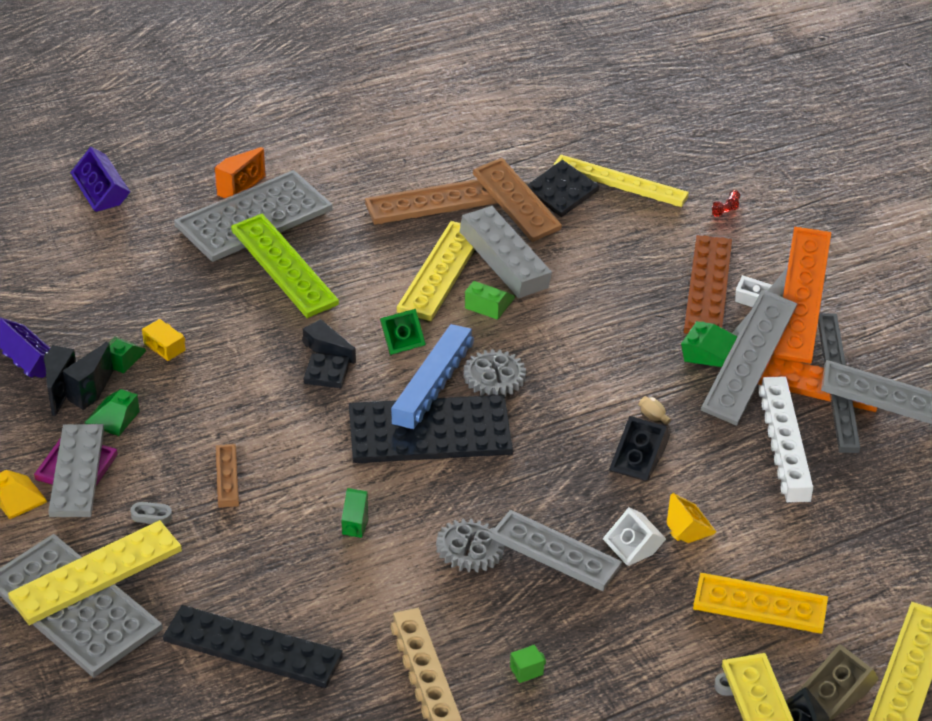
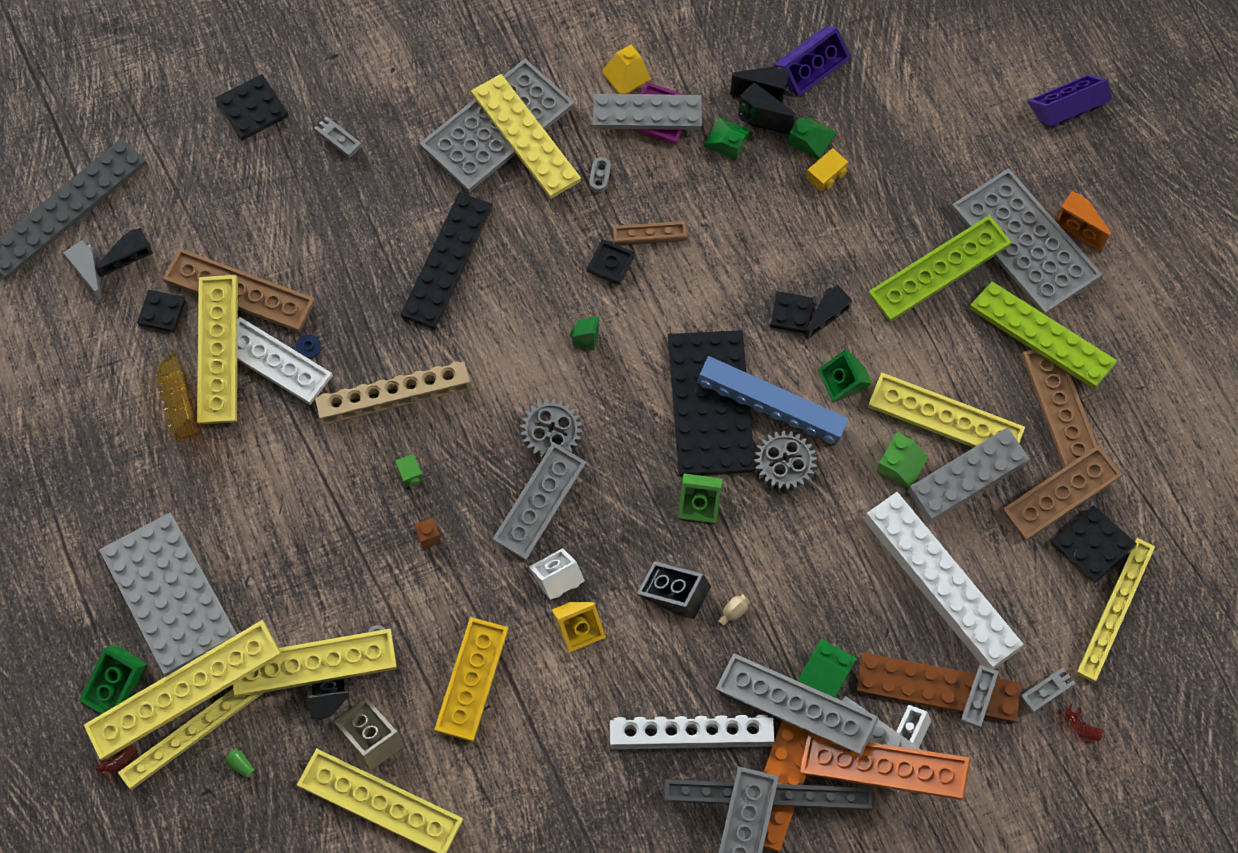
camera: 90 degrees right, 25 degrees up
(264, 502) = (611, 262): none -> black plate
(355, 206) = (1043, 335): none -> lime plate
(539, 431) = (700, 498): none -> bright green slope
(602, 642) = (427, 533): none -> dark orange brick
(607, 275) = (943, 582): none -> white brick
(701, 220) = (1046, 691): none -> light grey hinge
(718, 251) = (979, 696): none -> light grey plate

